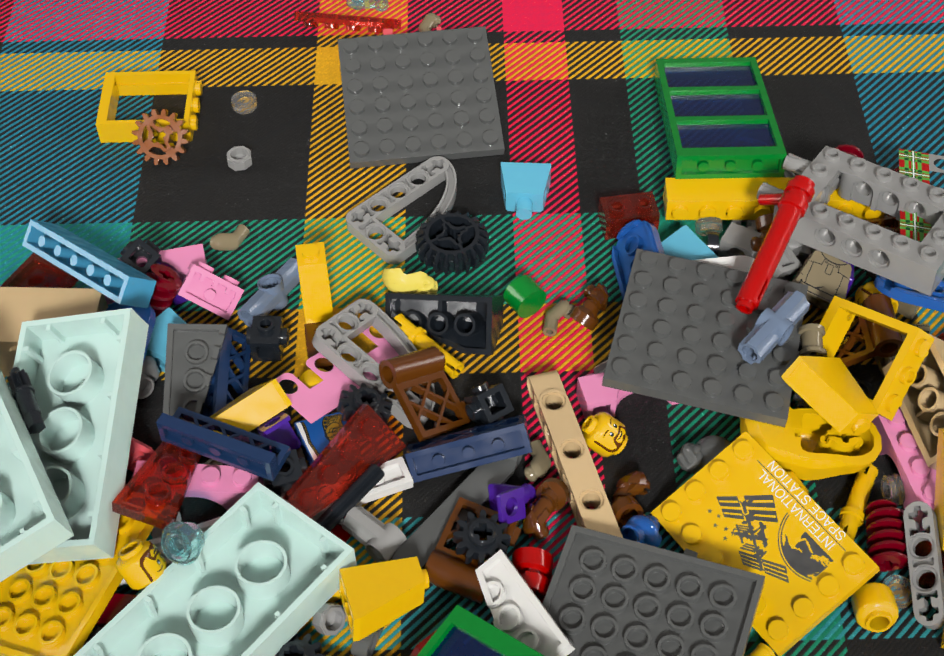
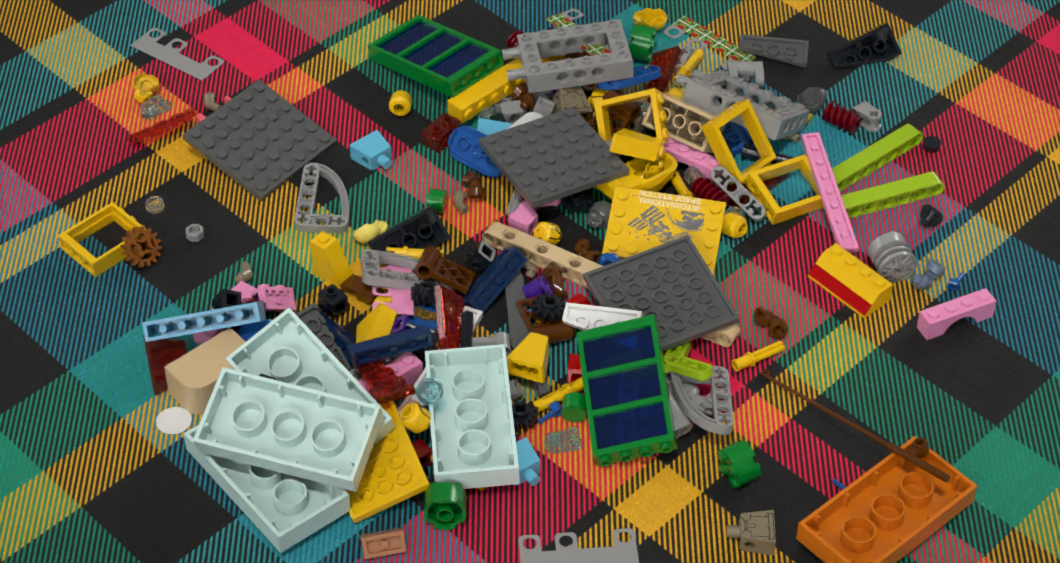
camera: 45 degrees left, 5 degrees down
(271, 292) = (305, 280): sand blue piece -> none
(452, 242) = (368, 200): black gear -> none
(621, 150) = (400, 103): none -> yellow head
(696, 420) = (578, 201): none -> black gear
(773, 327) = (584, 131): sand blue piece -> none
(791, 207) = (541, 70): red cylinder -> none
(812, 340) = (603, 130): dark tan bush -> none

